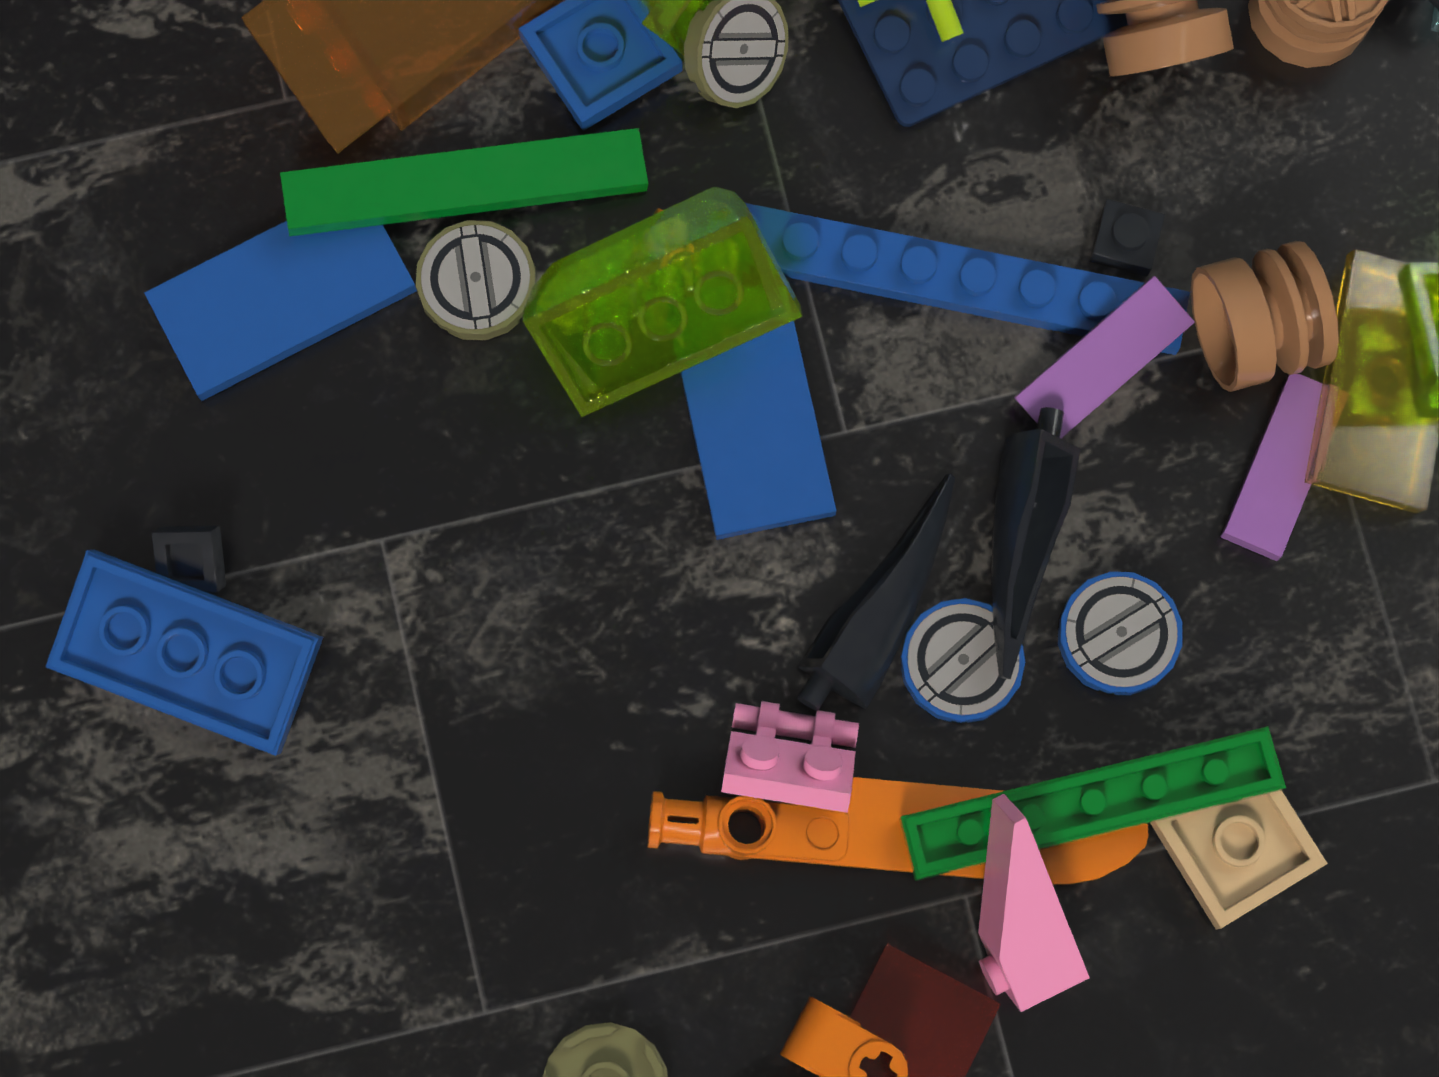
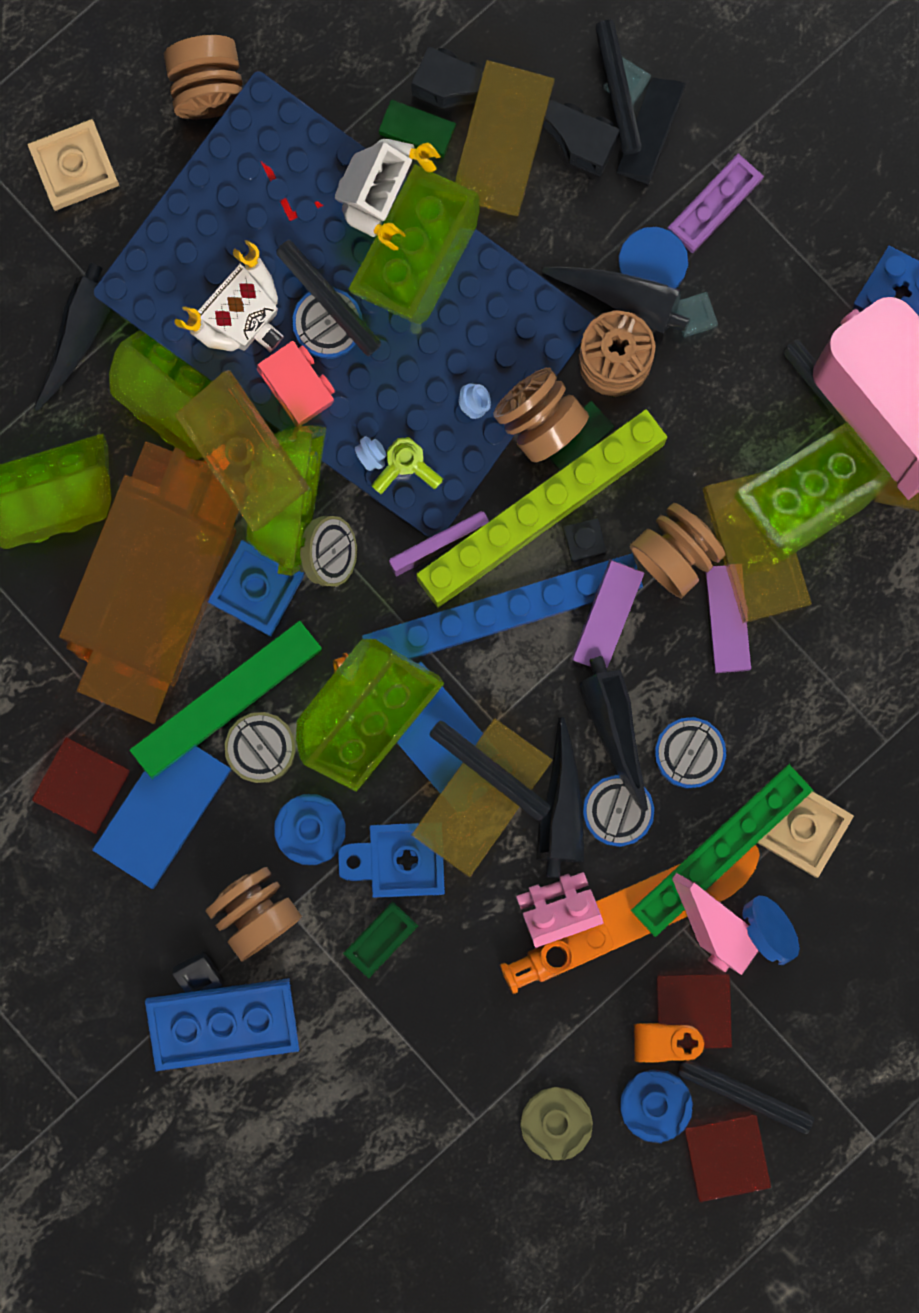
camera: 25 degrees left, 5 degrees up
(184, 194) = (80, 785): none -> clear red tile
(322, 506) = (253, 913): none -> medium nougat wheel
(481, 438) = (310, 829): none -> blue tile
(493, 657) = (380, 939): none -> dark green tile
(560, 533) = (380, 864): none -> blue plate
(764, 524) = (471, 810): none -> clear yellow tile
(799, 487) = (489, 770): none -> black axle
(907, 125) = (437, 544): none -> medium lavender tile
(1089, 154) = (541, 508): none -> lime brick
(1104, 968) = (771, 930): none -> blue tile
(1196, 88) = (594, 431): none -> dark green tile

